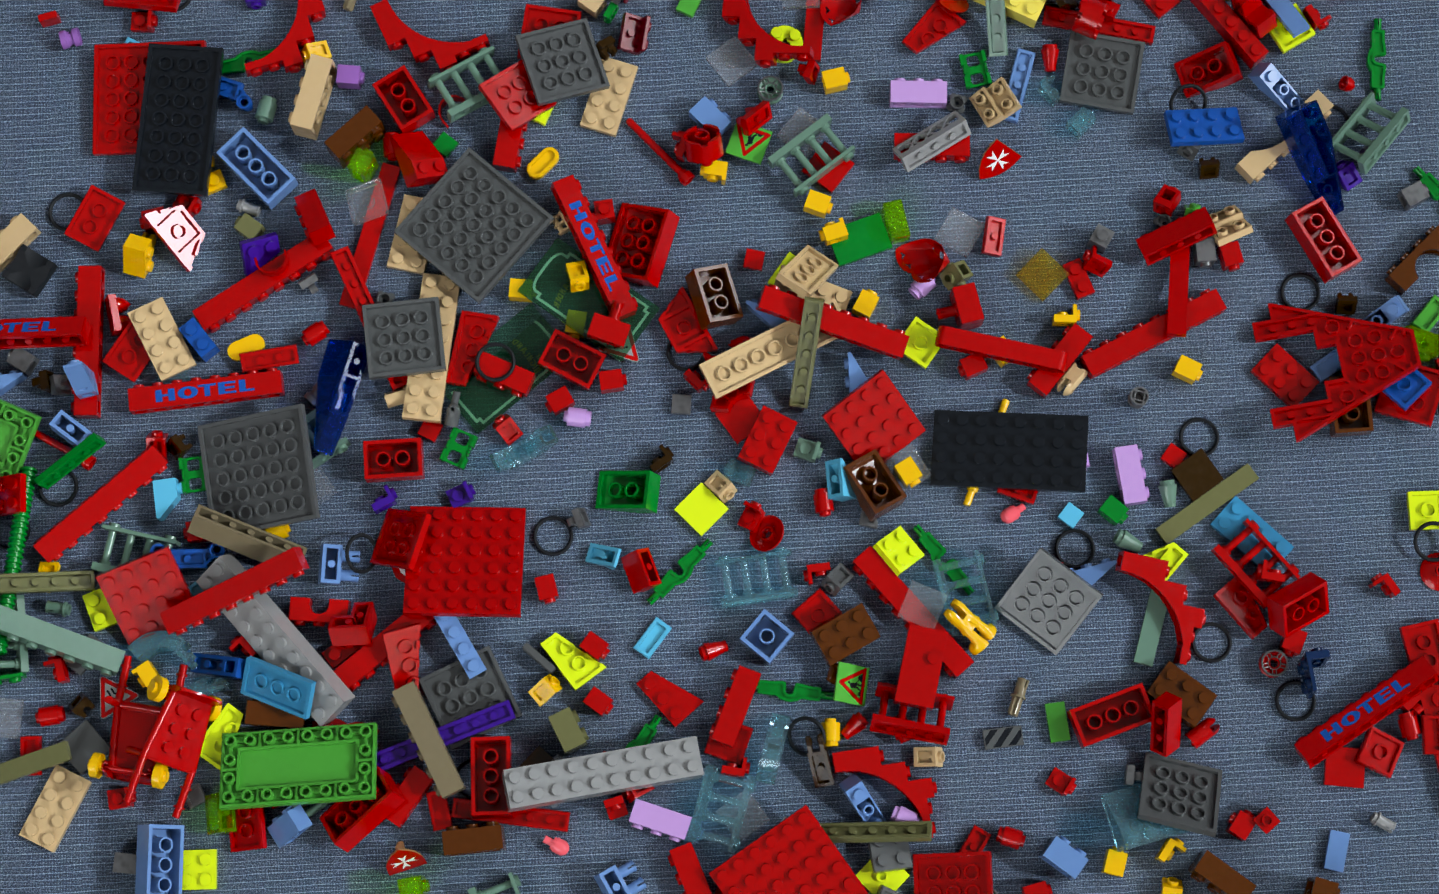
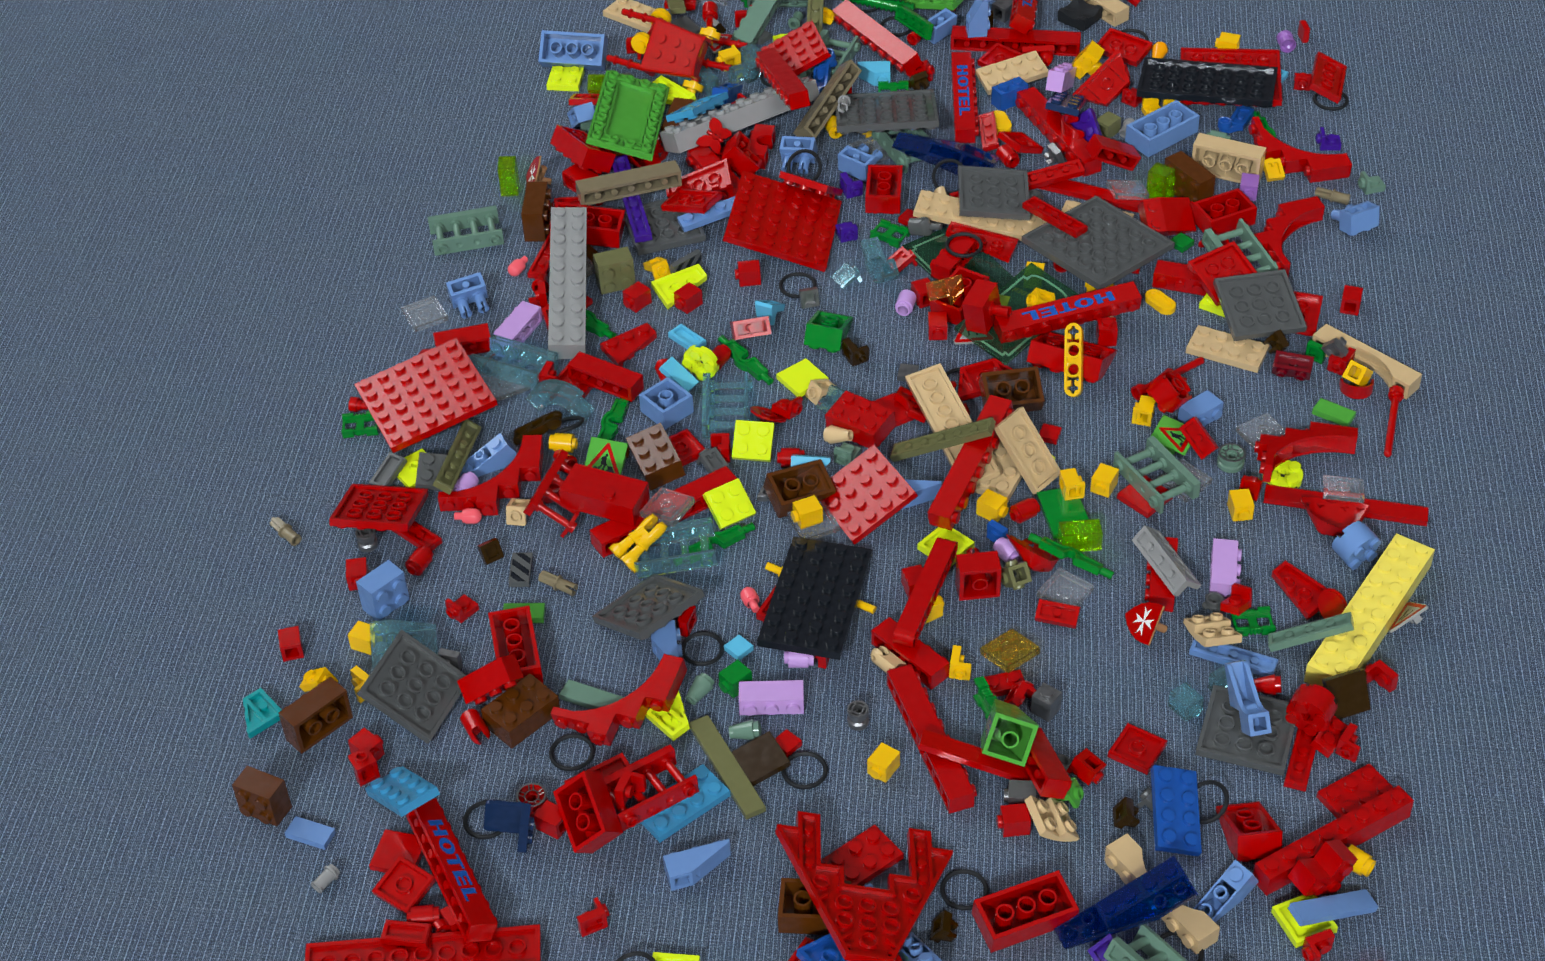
camera: 100 degrees right, 35 degrees down
(80, 102) = (1228, 40): none -> yellow brick
(102, 179) = (1159, 50): none -> light orange cone
(178, 281) = (1061, 77): none -> lavender brick
(226, 272) = (1066, 103): none -> dark blue plate
(259, 518) = (843, 103): none -> light grey pin
(291, 321) = (1020, 142): none -> red plate
(332, 657) = (715, 137): none -> red piece
(349, 496) = (856, 161): none -> medium blue brick
(358, 392) = (936, 167): none -> black tyre
(443, 270) = (1055, 217): none -> red tile
(445, 666) = (691, 201): none -> red tile
(540, 484) = (846, 275): none -> clear light blue bracket
(582, 364) = (947, 287): none -> clear orange slope
(585, 811) = (542, 277): none -> red cone
(669, 237) = (1070, 360): none -> yellow beam
(684, 598) = (723, 354): none -> red brick
(705, 611) = (692, 361): none -> neon yellow plate
(720, 633) = (678, 374): none -> medium azure tile
(787, 461) = (836, 434): none -> tan cone
(808, 541) = (753, 440): none -> neon yellow plate
(866, 274) = (1024, 510): none -> red brick
(901, 297) = (996, 531): none -> blue plate
(918, 237) = (1063, 551): none -> green piece
(942, 803) = (469, 516): none -> coral cylinder
(962, 81) = (1238, 601): none -> red bracket
(988, 770) = (490, 551): none -> dark brown tile
(1084, 71) = (1244, 697): none -> medium blue arch
(1100, 292) = (984, 697): none -> green piece
(1132, 162) = (1137, 748): none -> red tile
(1157, 264) = (1008, 733): none -> bright green slope
(1296, 774) = (402, 791): none -> dark azure plate
(1320, 514) = (691, 865): none -> medium blue slope

